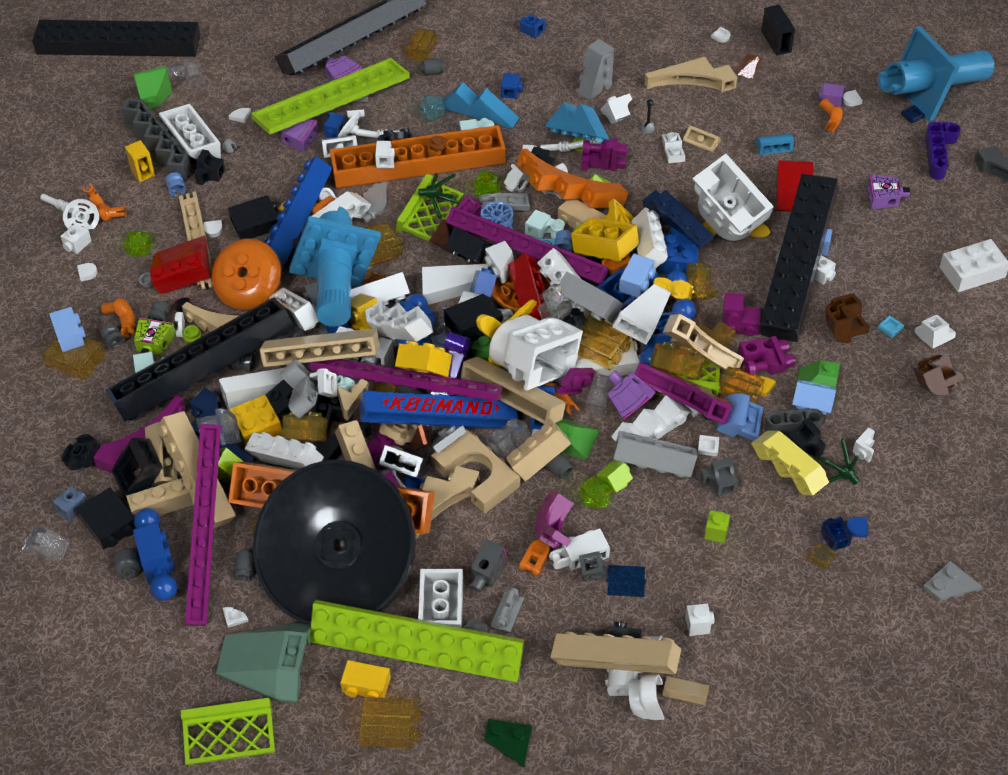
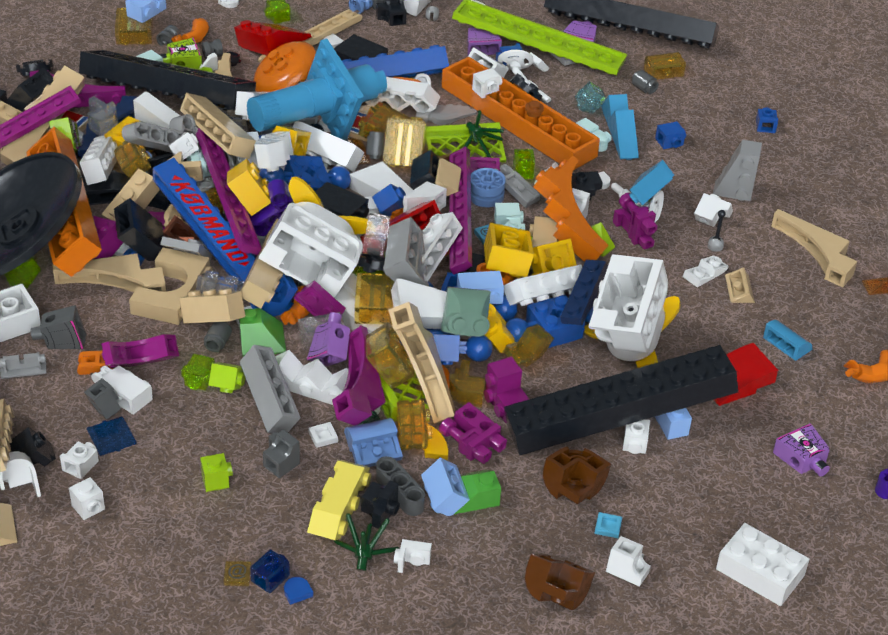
camera: 55 degrees right, 10 degrees down
(392, 261) = (375, 144): none -> dark grey brick
(412, 241) = (403, 141): none -> clear yellow brick
(485, 233) = (448, 176): none -> tan slope
(647, 615) = (82, 457): none -> white brick
(671, 294) = (466, 312): none -> sand green slope

